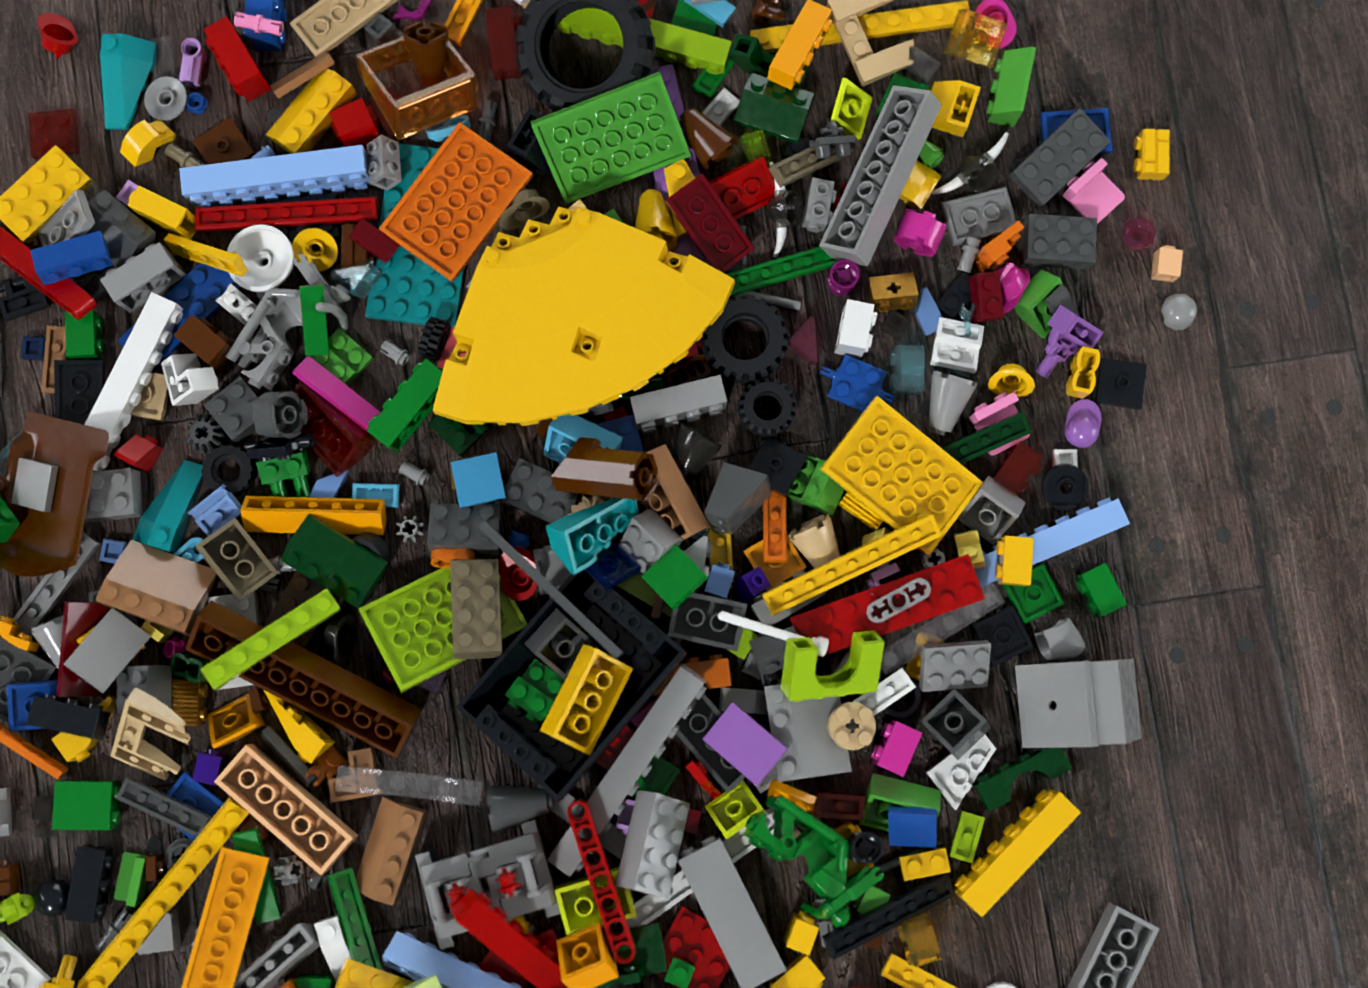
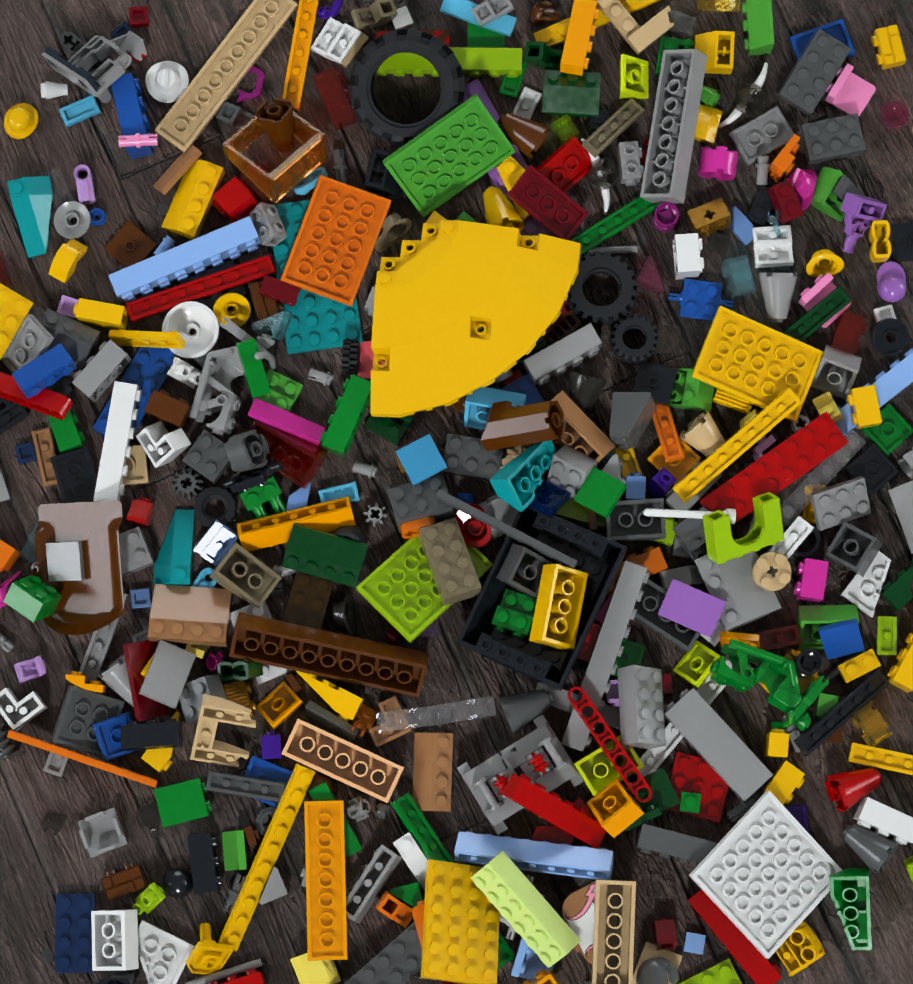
camera: 10 degrees left, 0 degrees up
(184, 158) = (102, 265): dark tan pin -> none
(235, 59) = (122, 173): red brick -> none
(270, 639) = (297, 628): lime arch -> none
(699, 772) = (661, 642): red wing -> none
(823, 144) = (635, 108): dark grey hips -> none
(911, 585) = (774, 476): light grey beam -> none

